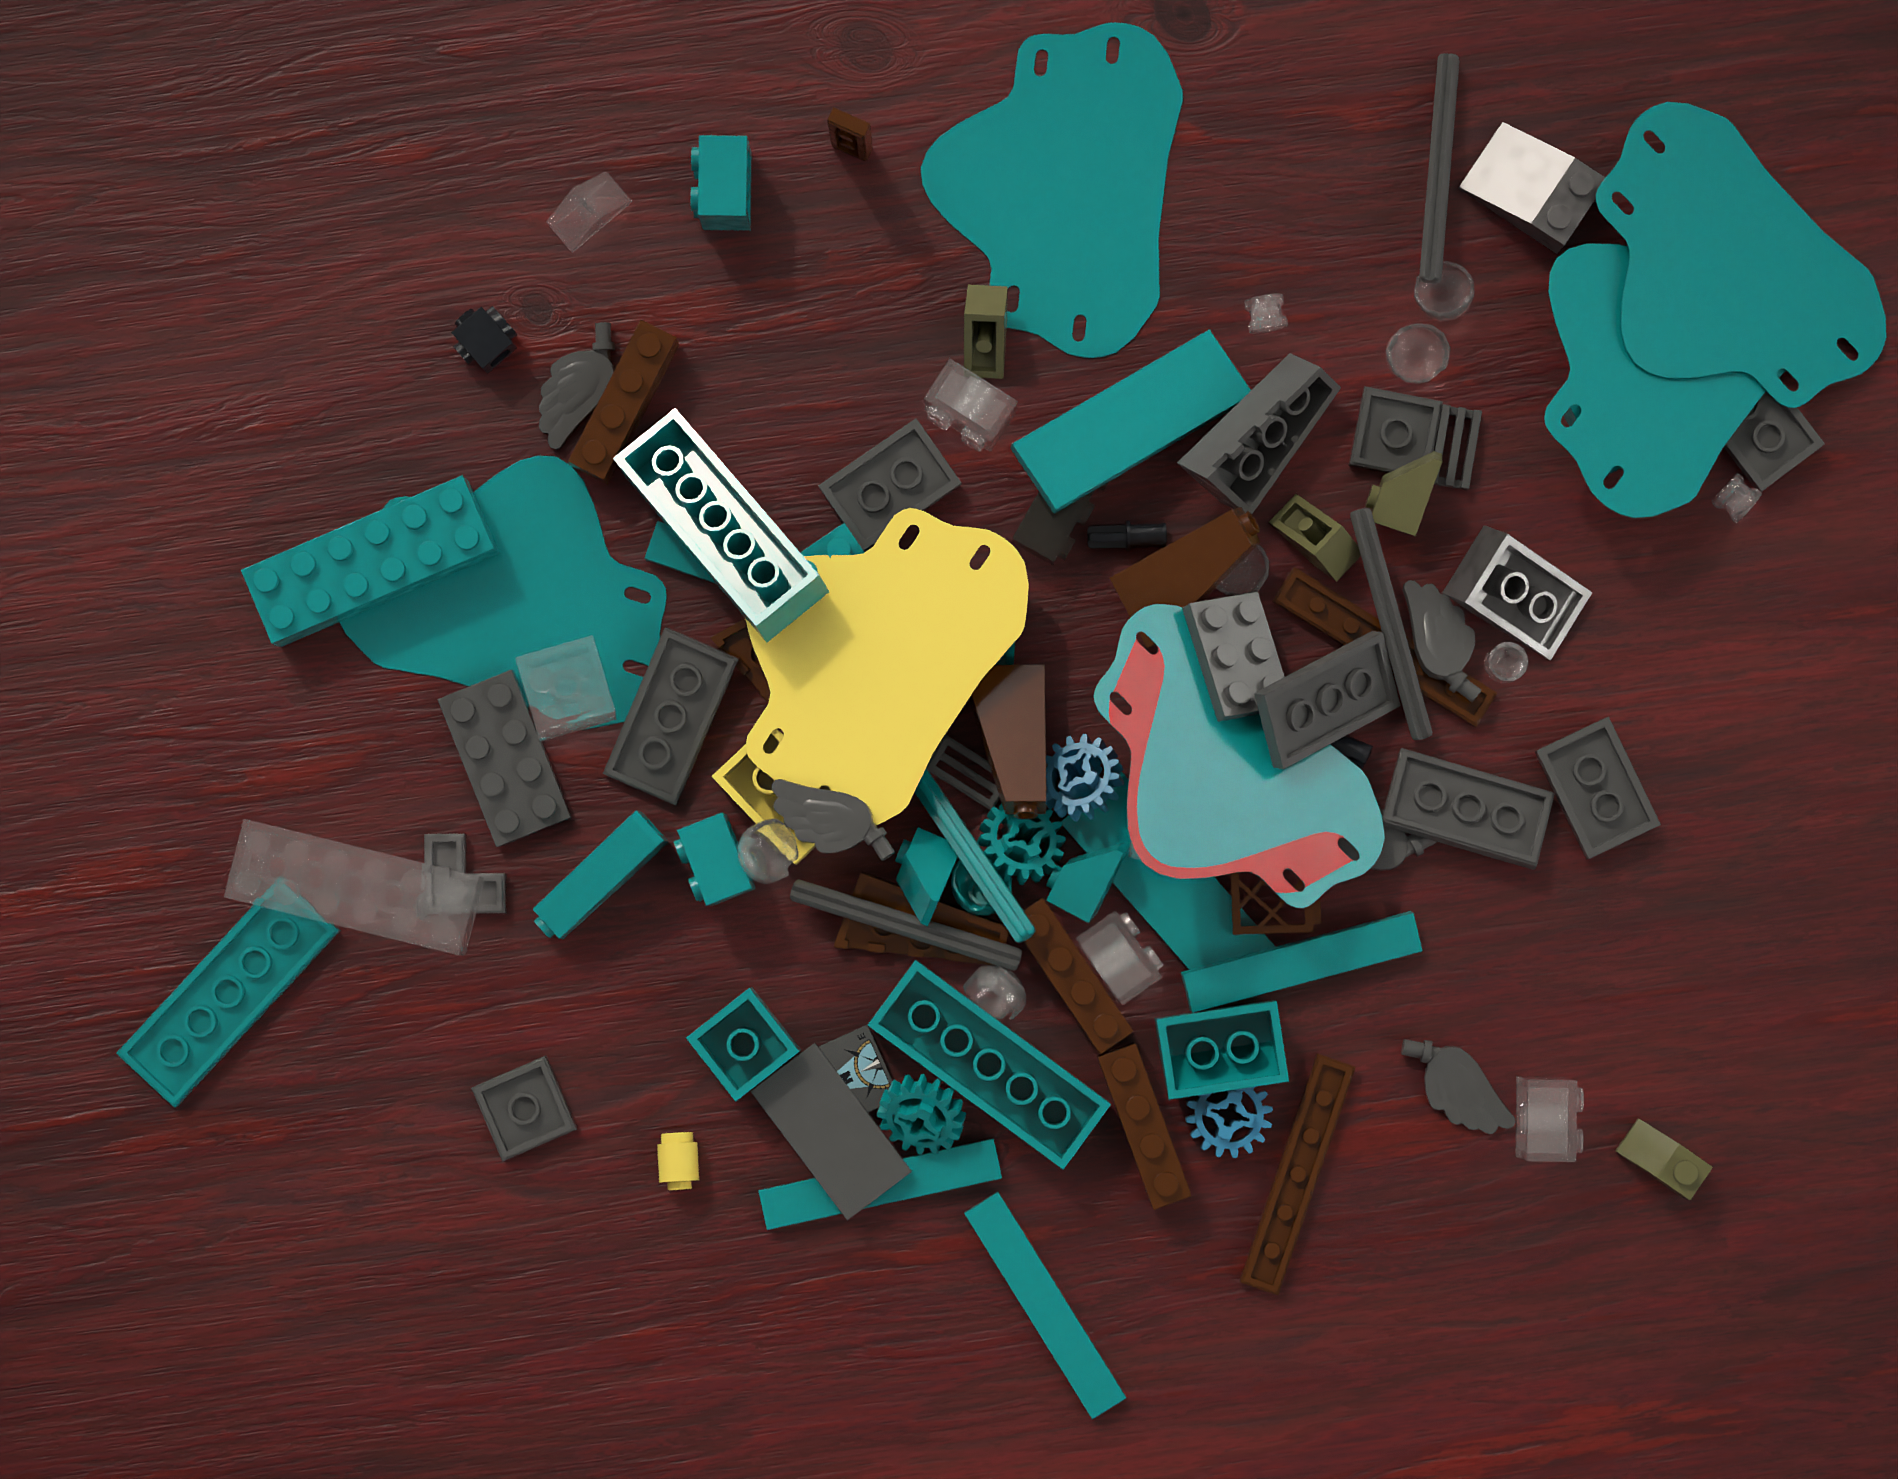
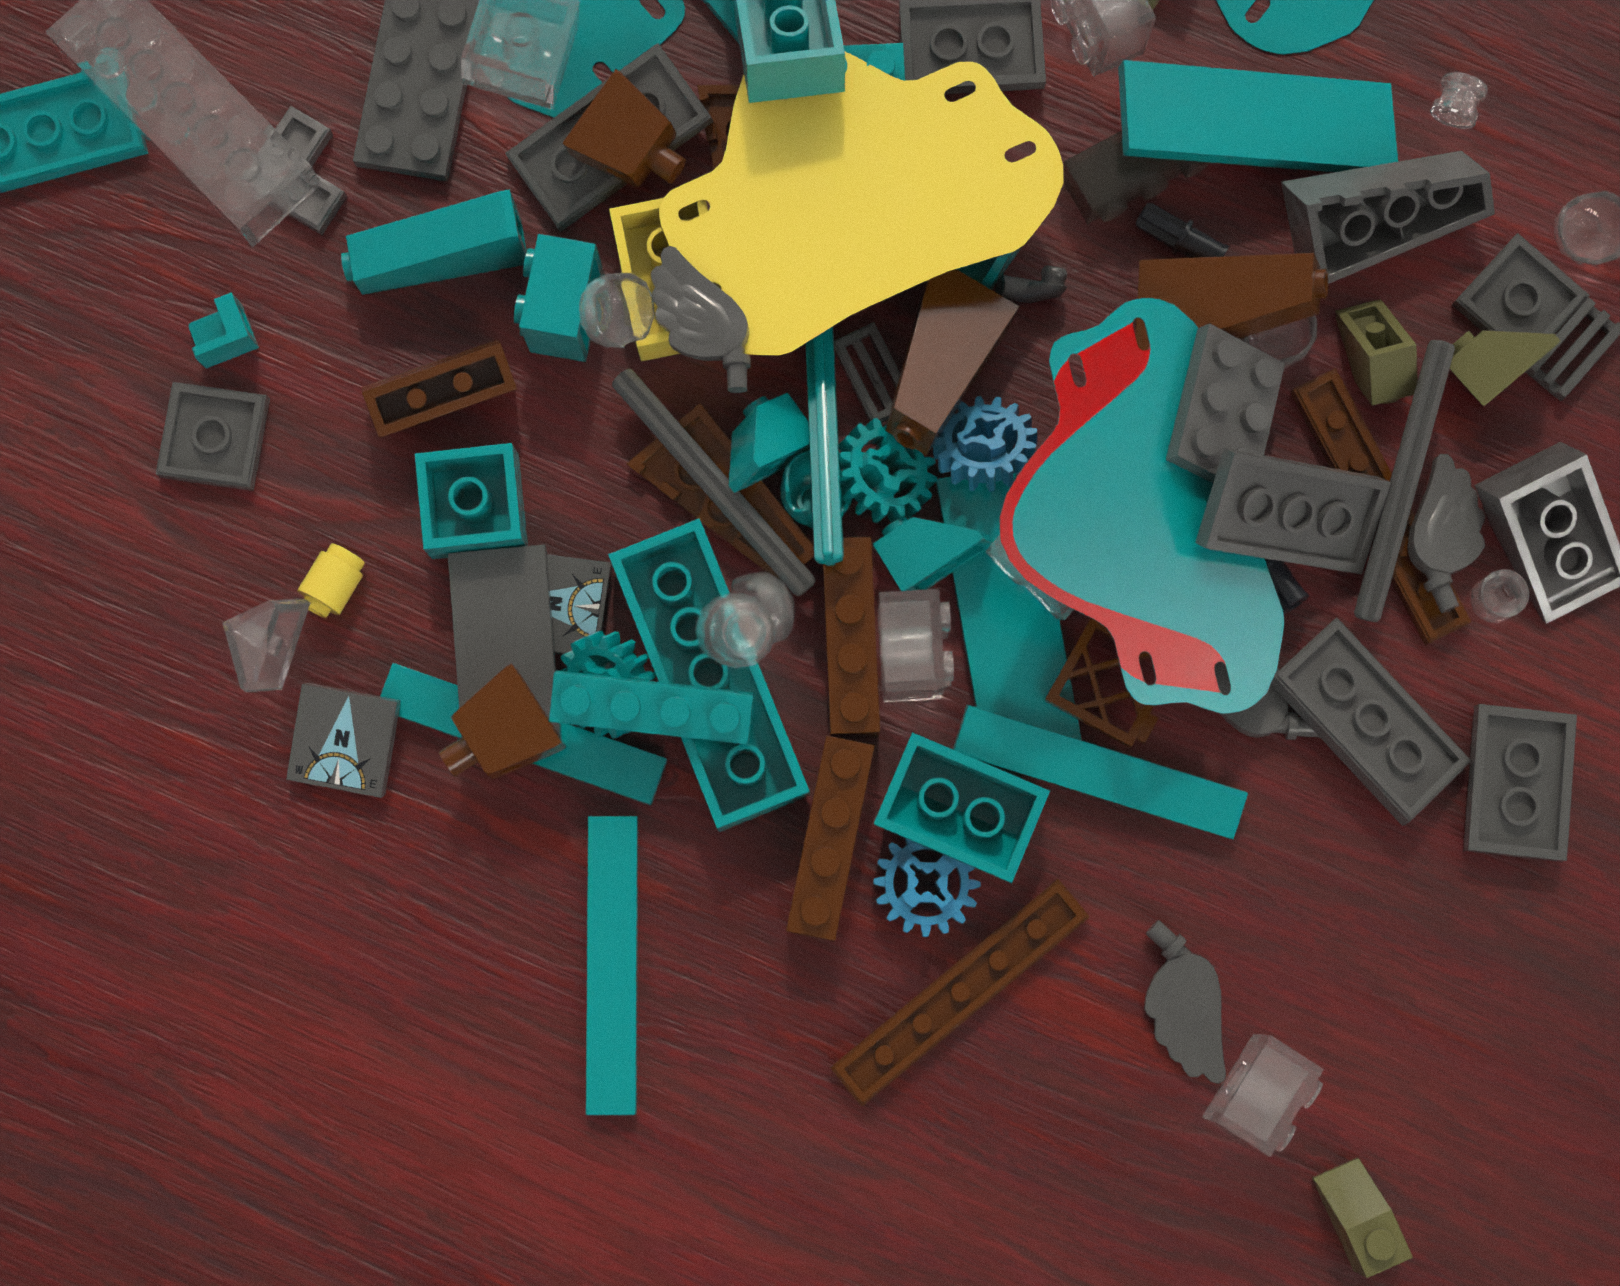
camera: 30 degrees right, 5 degrees down
(483, 1030) = (222, 333): none -> teal panel
(662, 1234) = (265, 642): none -> clear slope
(668, 977) = (438, 388): none -> reddish brown brick
(688, 713) = (625, 135): none -> reddish brown torso
(759, 1266) = (343, 740): none -> dark grey tile
(870, 1193) = (501, 728): none -> reddish brown torso
(966, 1115) = (651, 707): none -> teal plate
(991, 1024) = (735, 630): none -> clear hair
(1041, 643) = (1032, 290): none -> dark grey arm

